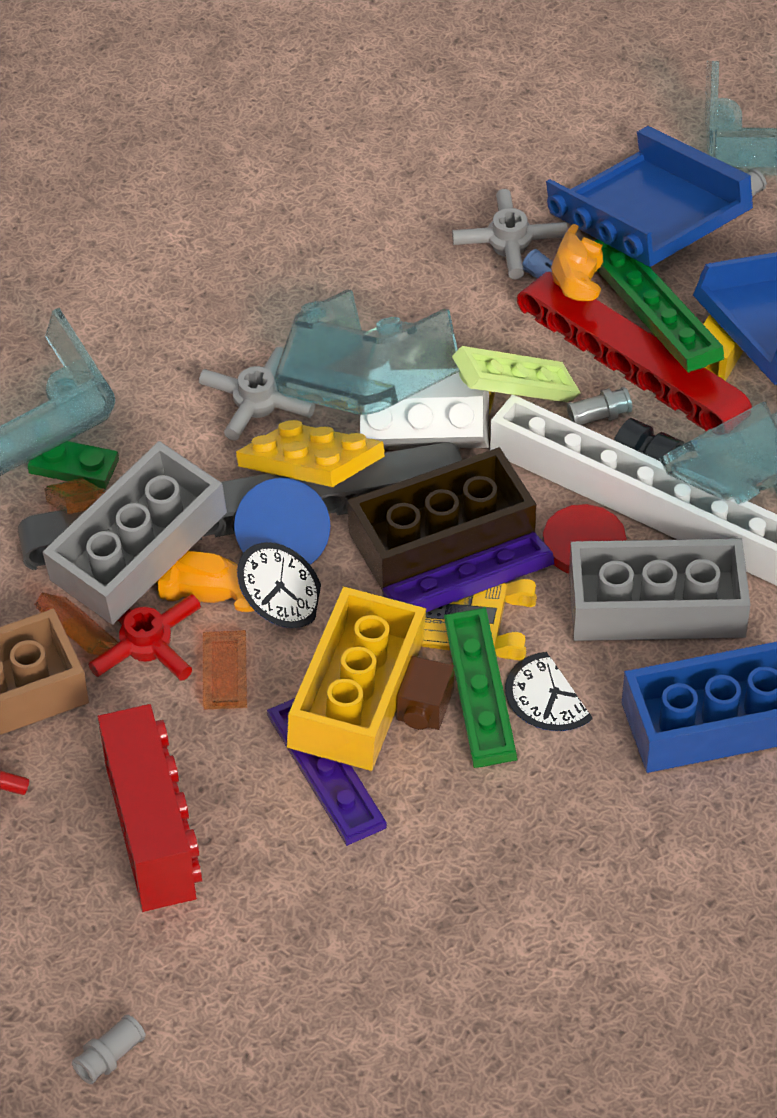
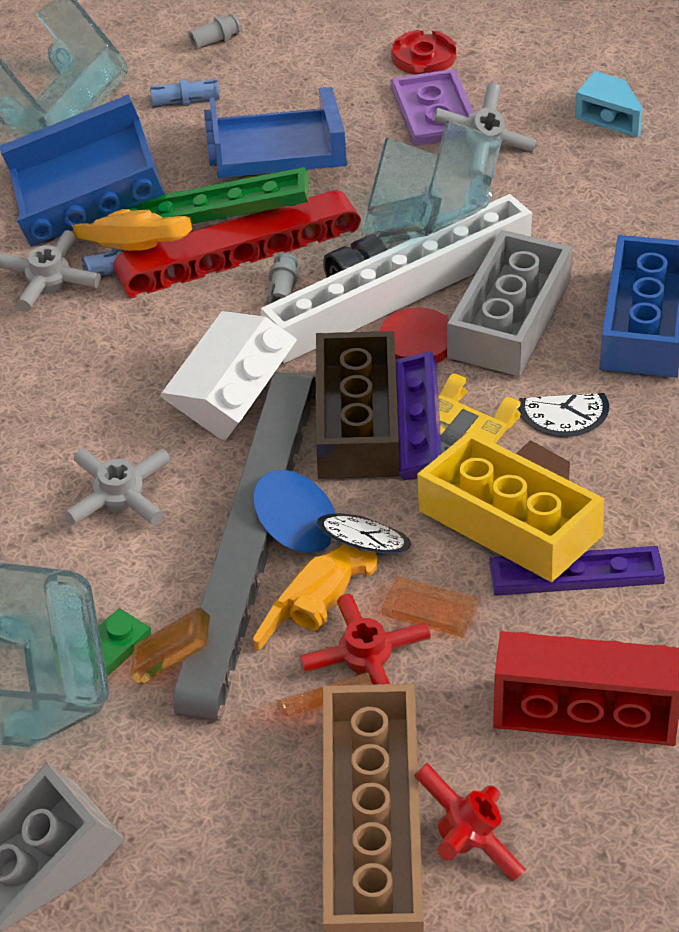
camera: 65 degrees left, 5 degrees down
(135, 532) = (273, 595): light grey brick -> none
(310, 453) = (232, 461): yellow plate -> none
(361, 370) = (167, 390): clear light blue windscreen -> none
(480, 688) = (583, 449): green tile -> none
(515, 374) = (244, 300): yellowish green plate -> none

